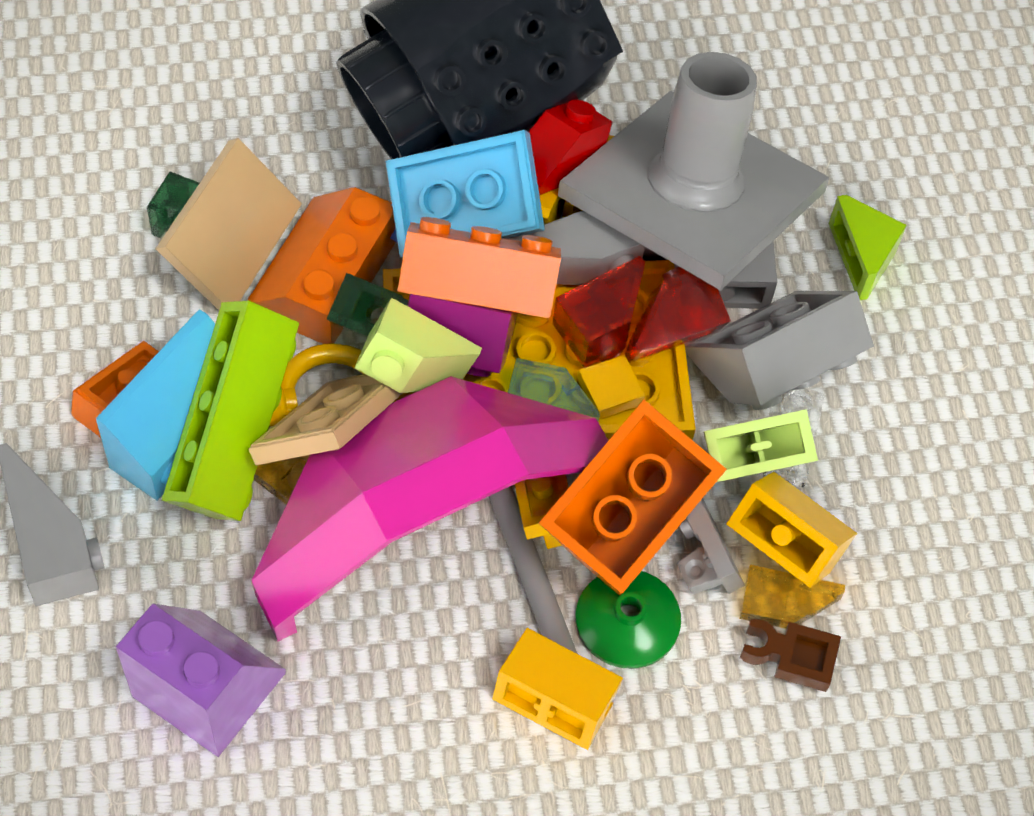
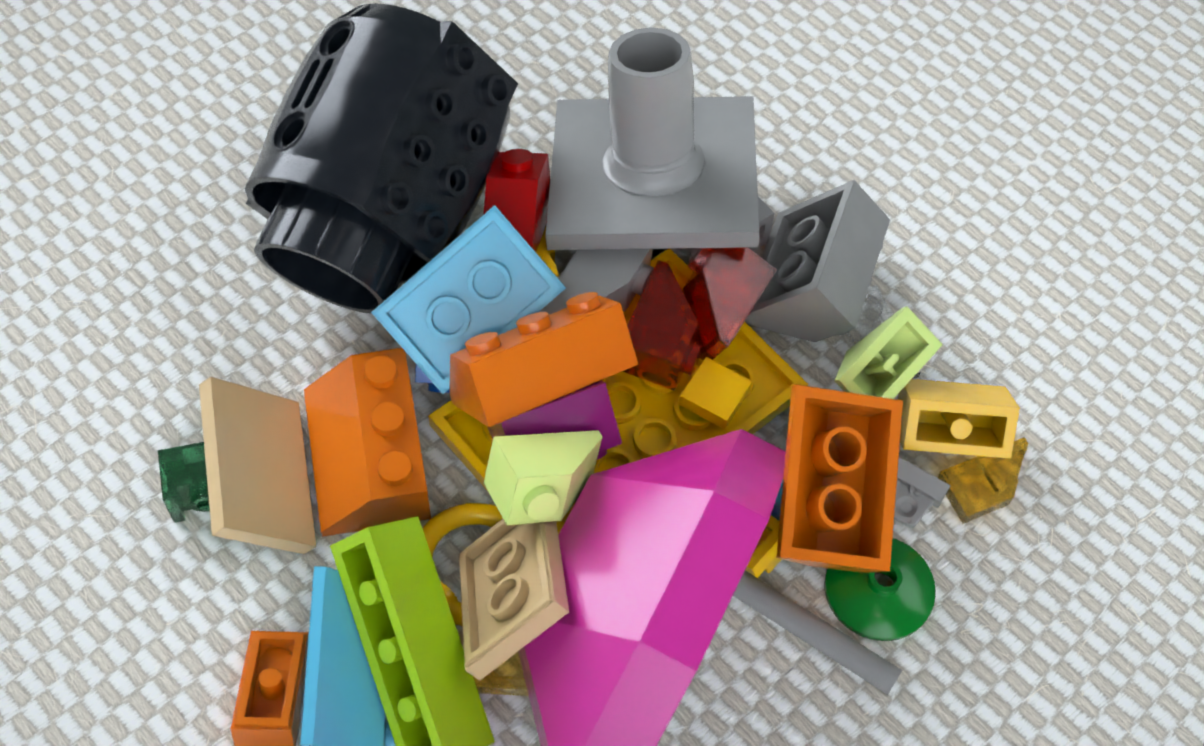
camera: 35 degrees left, 0 degrees up
(356, 303) = (437, 460): clear green brick -> none
(550, 386) = (667, 428): clear light blue tile -> none
(556, 688) = (885, 693): yellow hinge -> none
(801, 654) = (1040, 518): reddish brown plate -> none
(865, 241) = (804, 137): lime slope -> none

